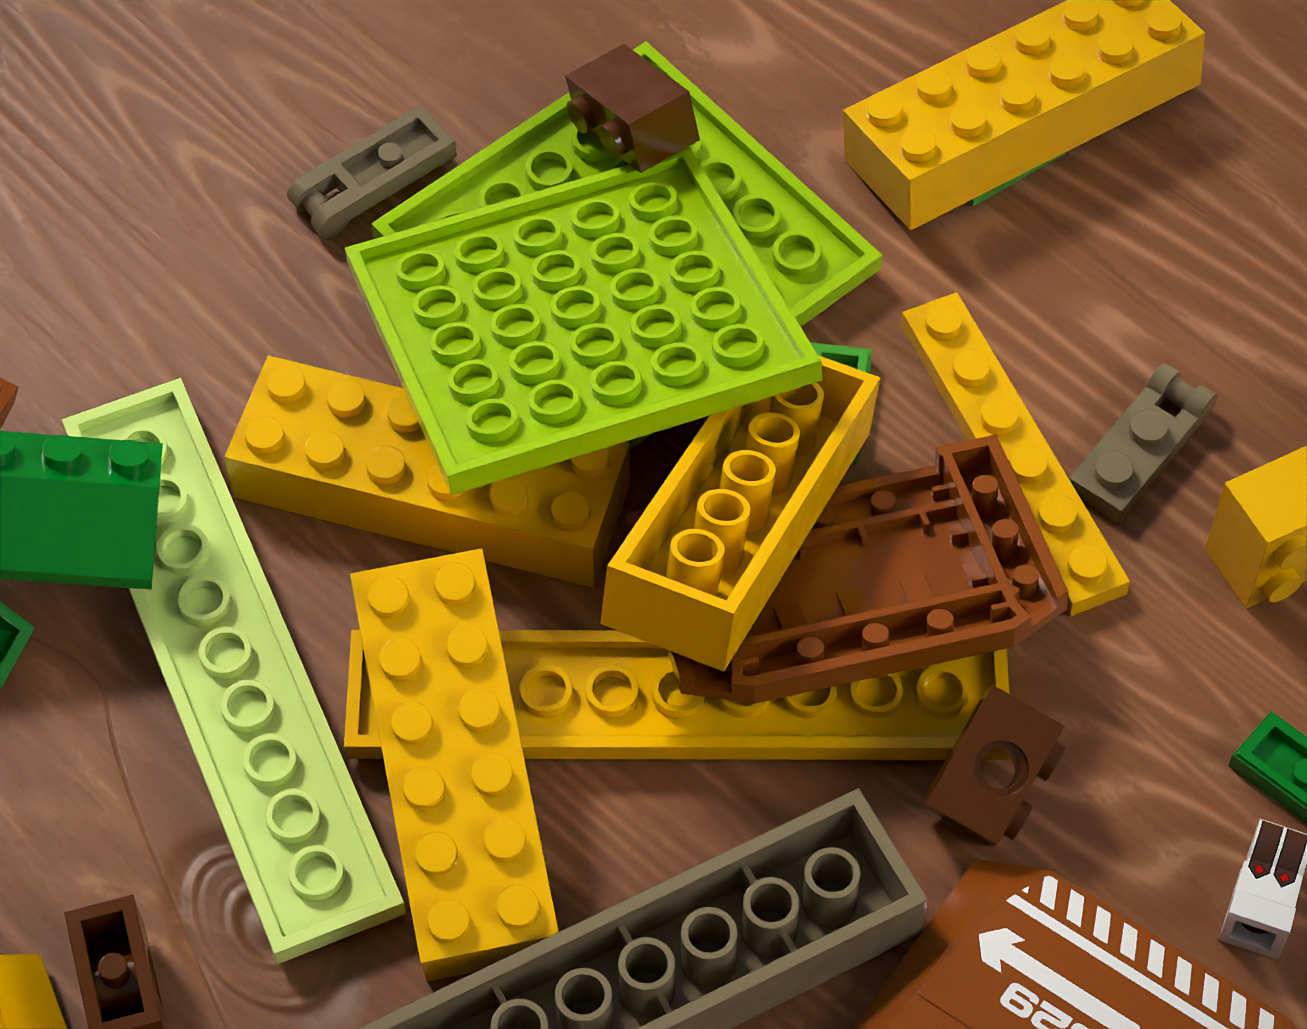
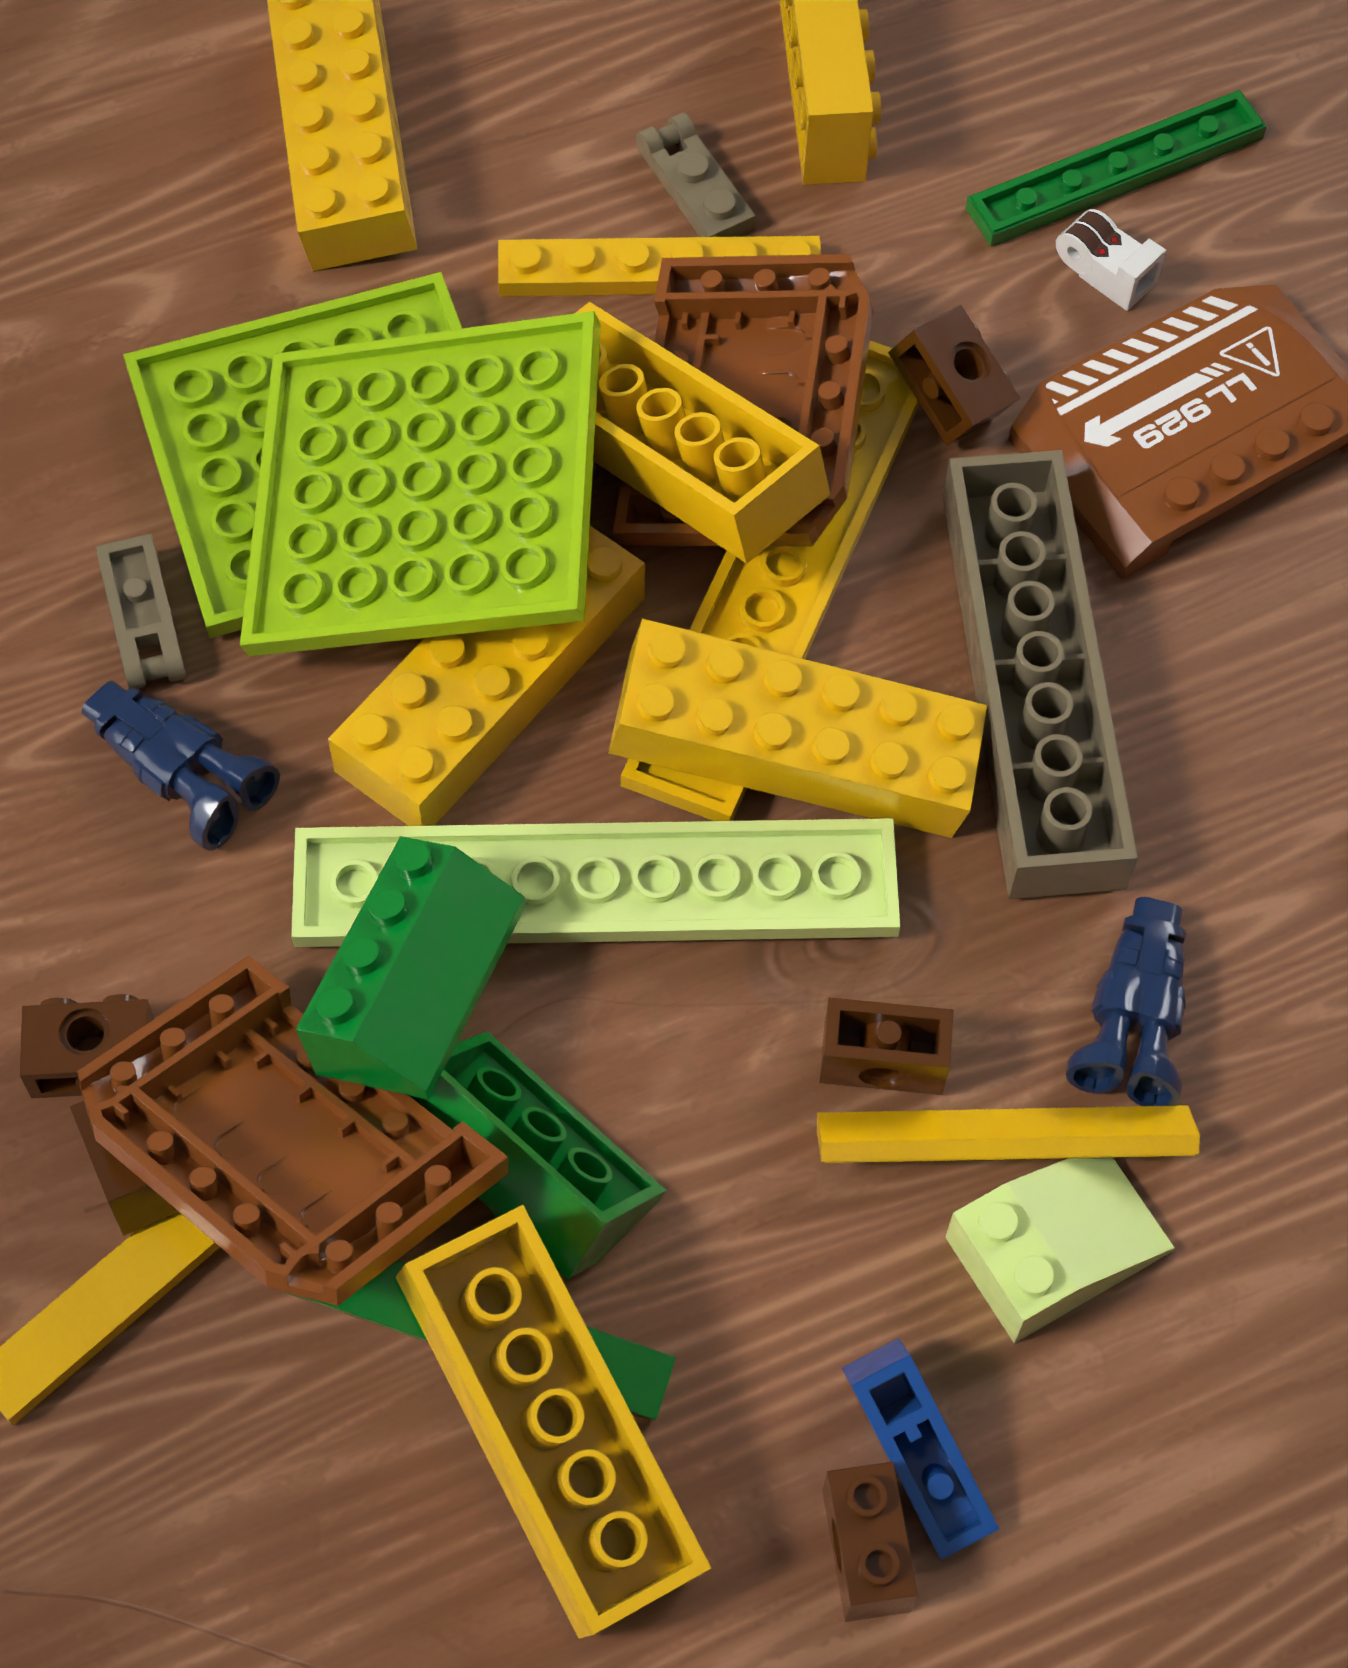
camera: 70 degrees left, 5 degrees up
(221, 250) = (170, 753): none -> dark blue piece
(631, 108) = (217, 375): reddish brown brick -> none

